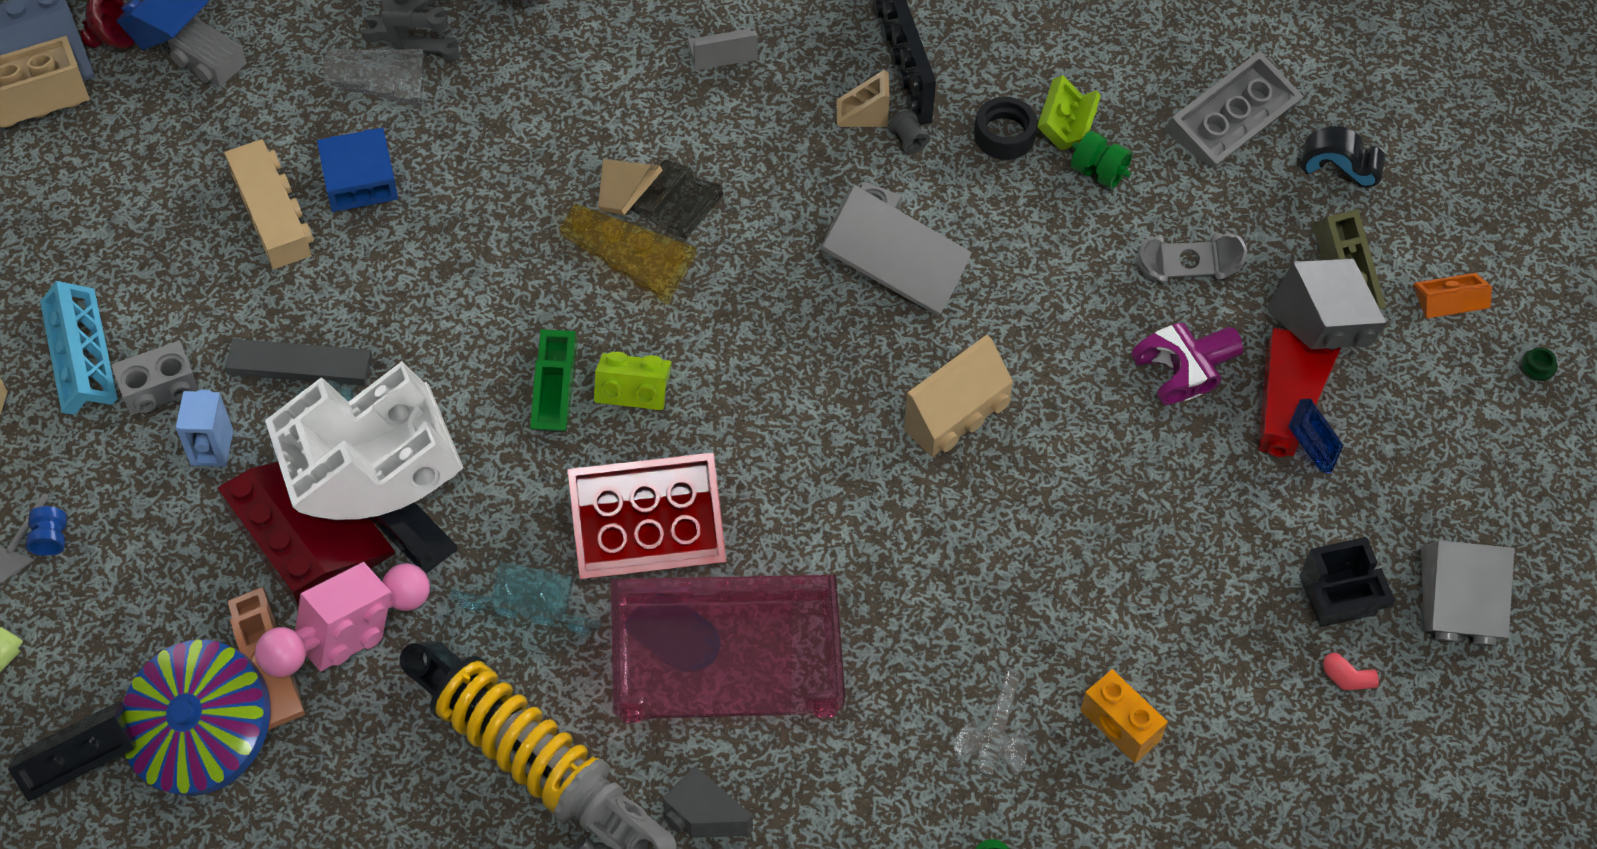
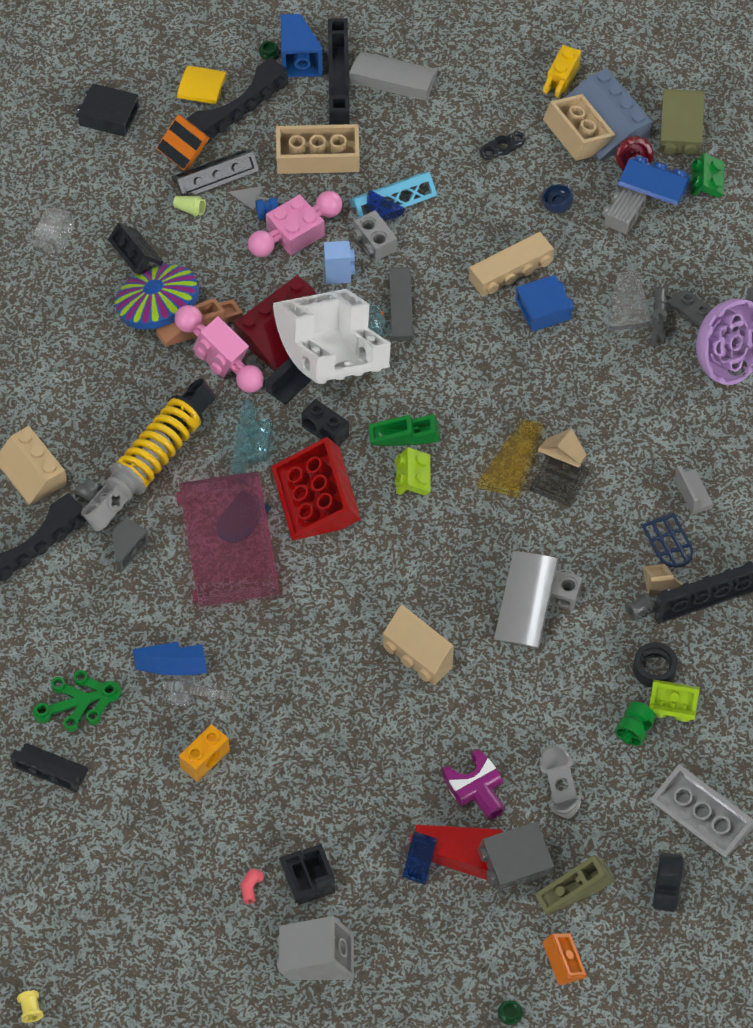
camera: 85 degrees right, 0 degrees up
(22, 202) = (512, 145): none -> black piece
(97, 360) = (384, 207): none -> clear blue tile
(97, 490) = (295, 224): none -> bright pink brick
(159, 127) = (557, 198): none -> dark blue hair
(521, 485) = (324, 422): none -> black brick
(788, 85) = (671, 532): none -> dark blue window
(946, 750) = (170, 659): none -> blue slope

